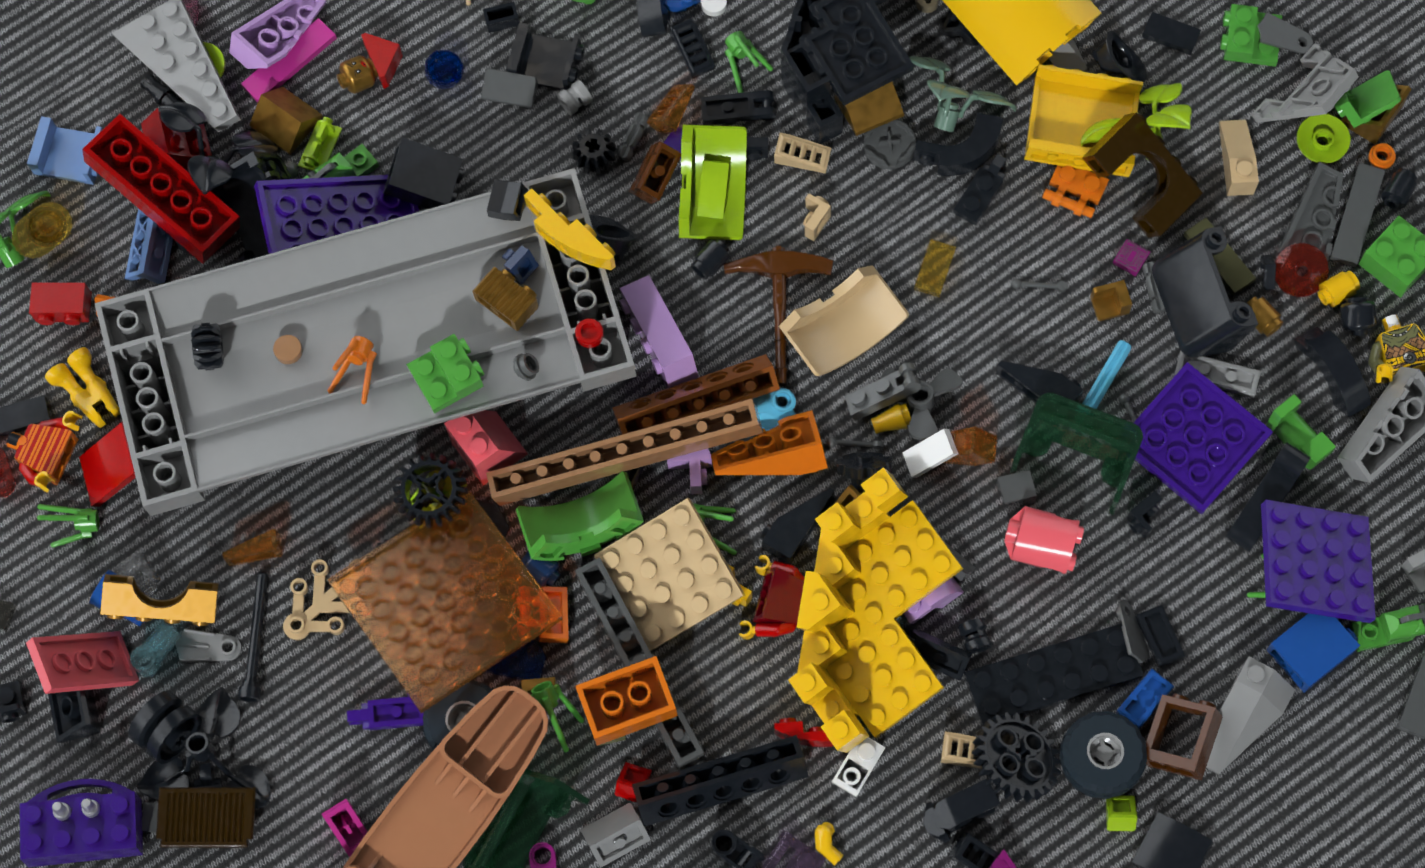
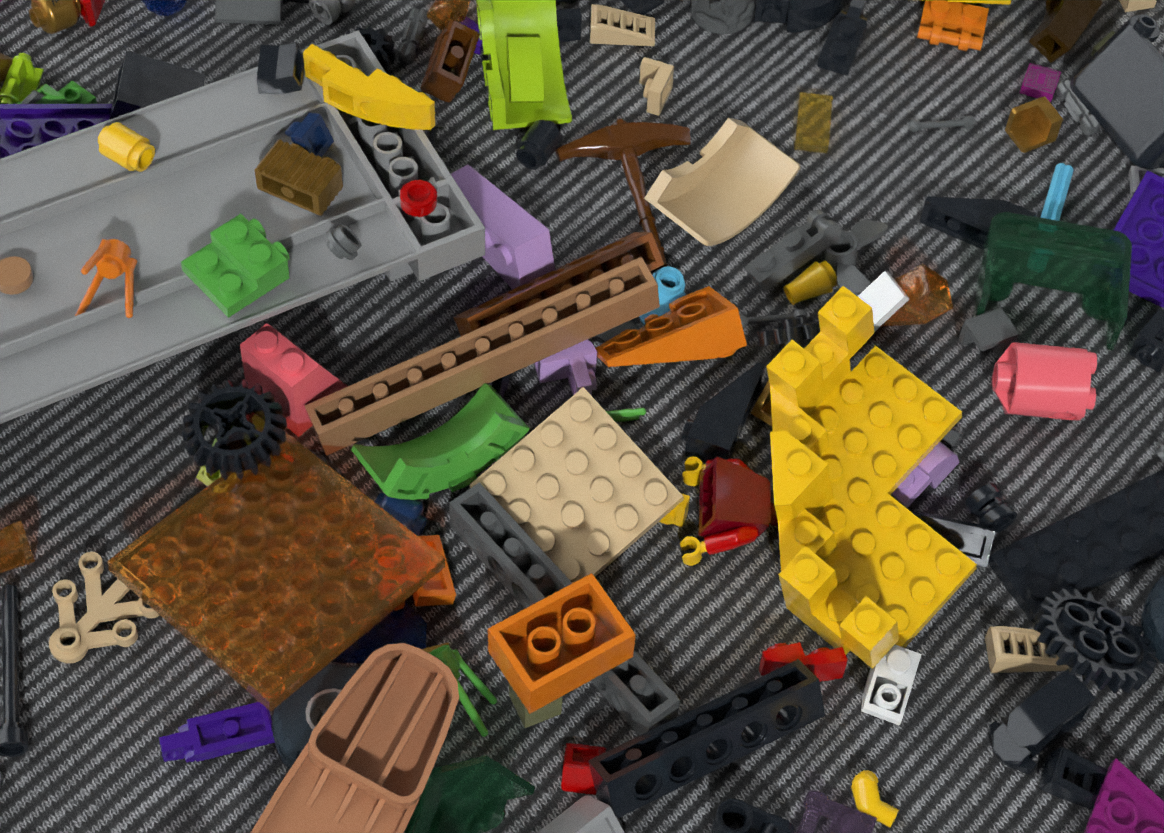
camera: 20 degrees left, 15 degrees down
(381, 257) = (125, 147): none -> yellow brick

